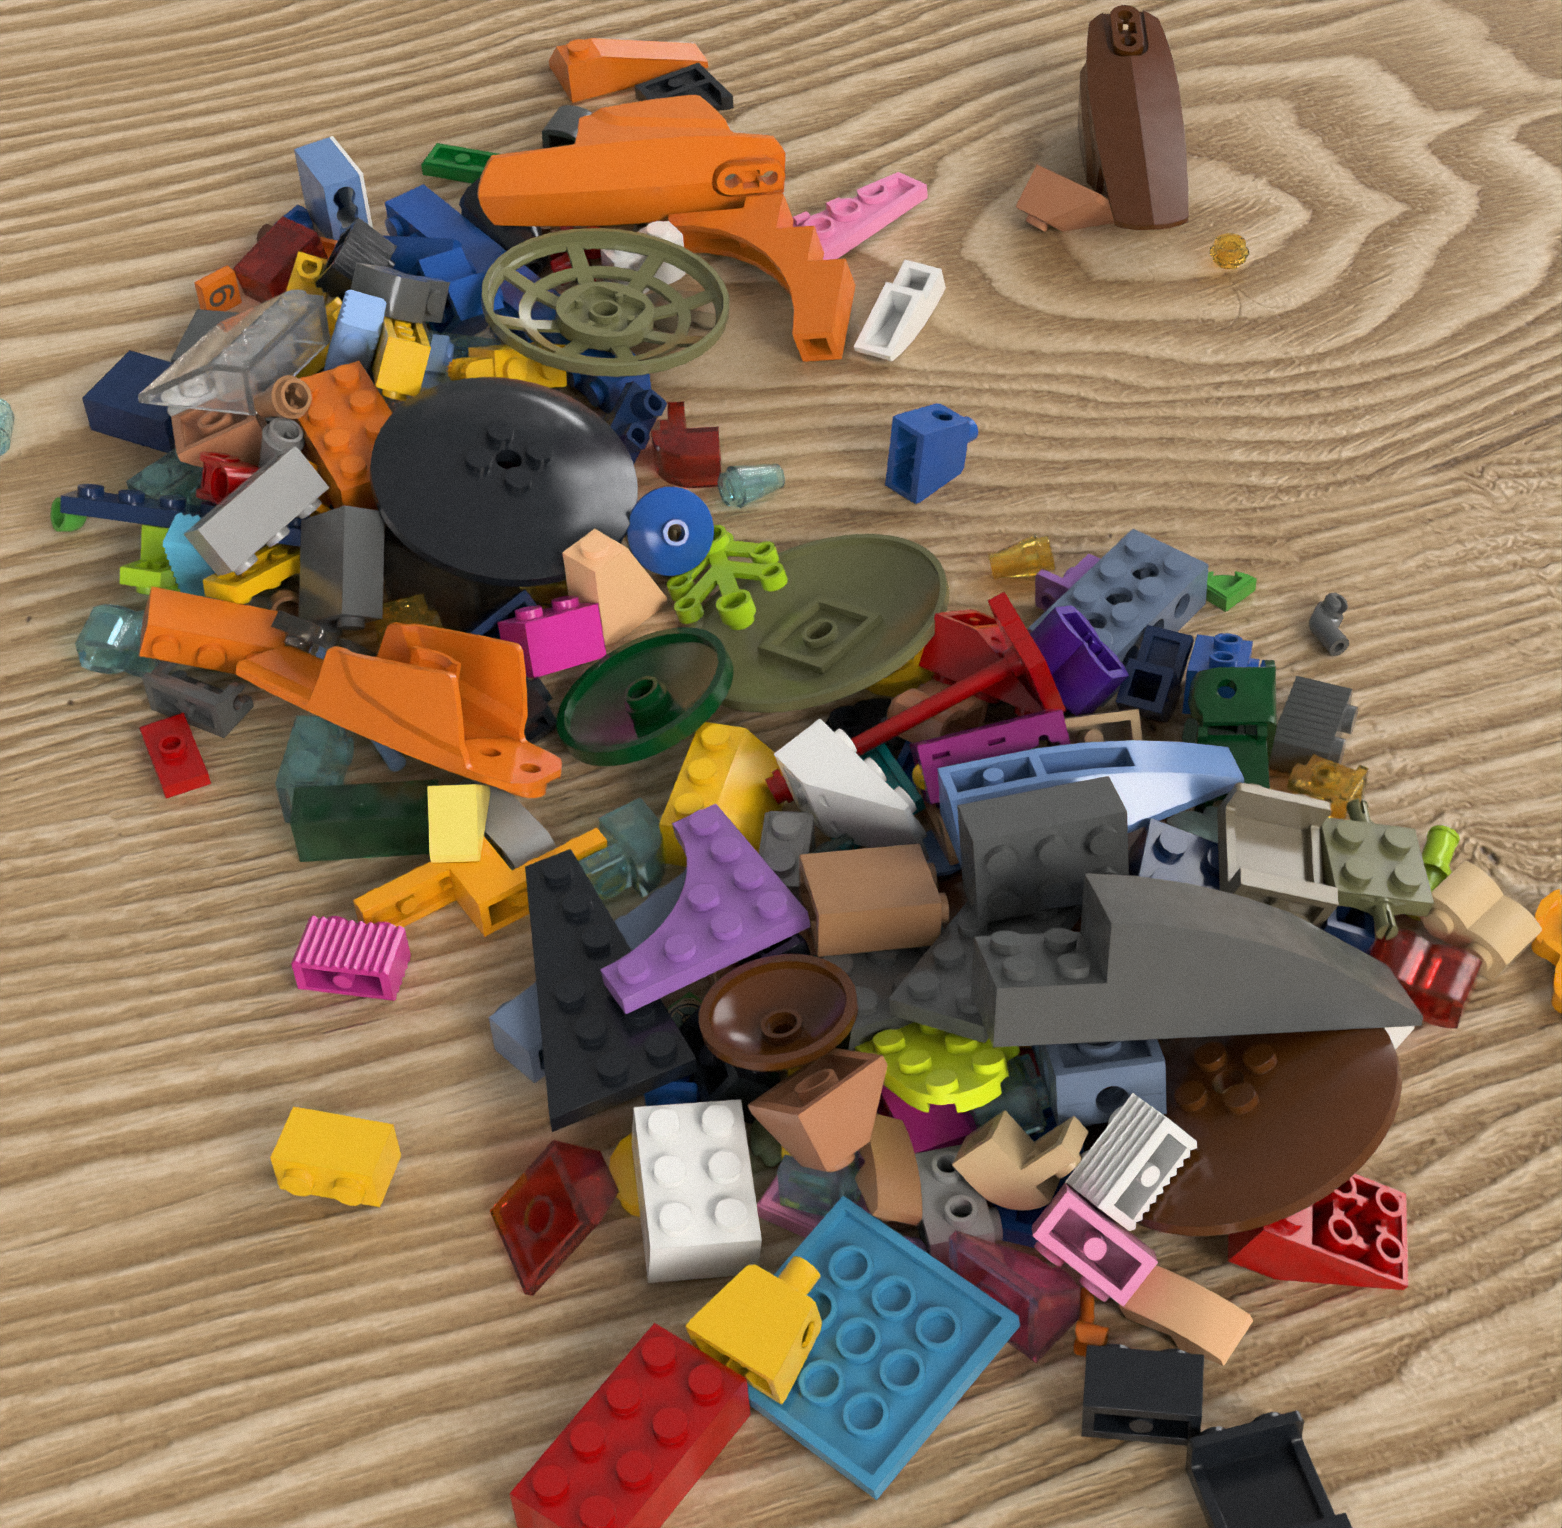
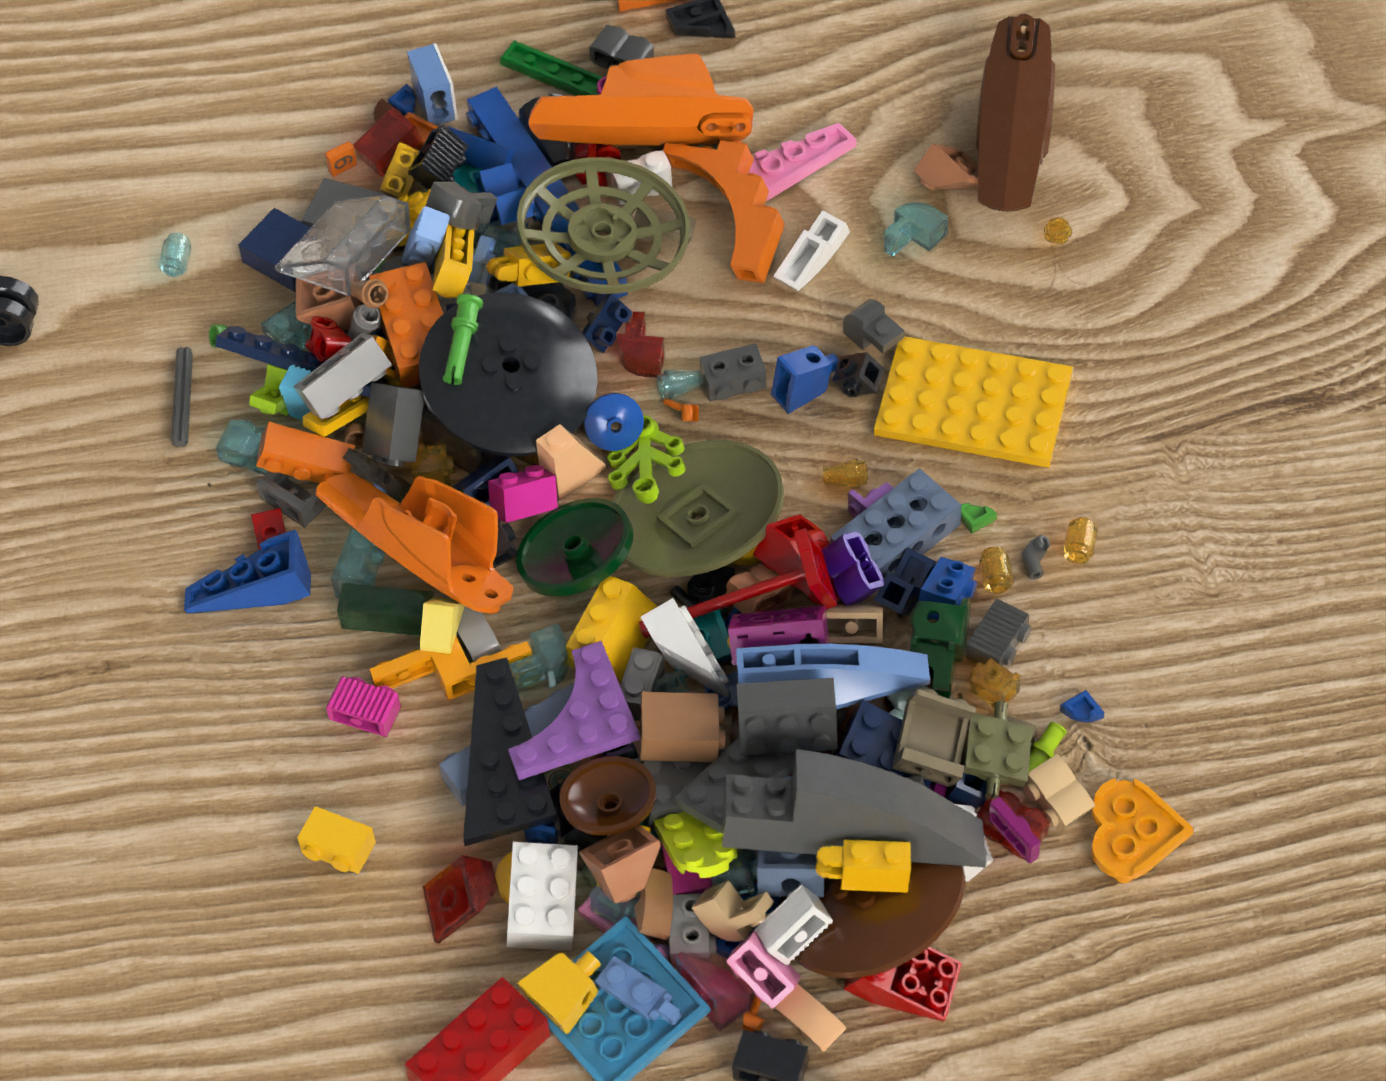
camera: 10 degrees right, 10 degrees up
(17, 597) = (181, 397): none -> dark grey axle
(172, 806) = (265, 578): none -> blue wedge
(431, 412) = (464, 326): none -> bright green pin
(773, 516) = (688, 411): none -> orange hand
(826, 460) = (733, 372): none -> dark grey brick
(892, 1312) = (637, 992): none -> medium blue hinge
(1007, 436) = (858, 374): none -> black brick
(1010, 378) = (872, 326): none -> dark grey brick
(1037, 265) = (916, 223): none -> clear light blue brick
(1178, 454) = (974, 401): none -> yellow plate
(1241, 1040) = (867, 865): none -> yellow hinge
(1279, 640) = (996, 570): none -> clear yellow brick
(1390, 593) = (1080, 540): none -> clear yellow brick
(1440, 973) = (1015, 830): none -> magenta plate
(1468, 808) = (1082, 708): none -> blue tile

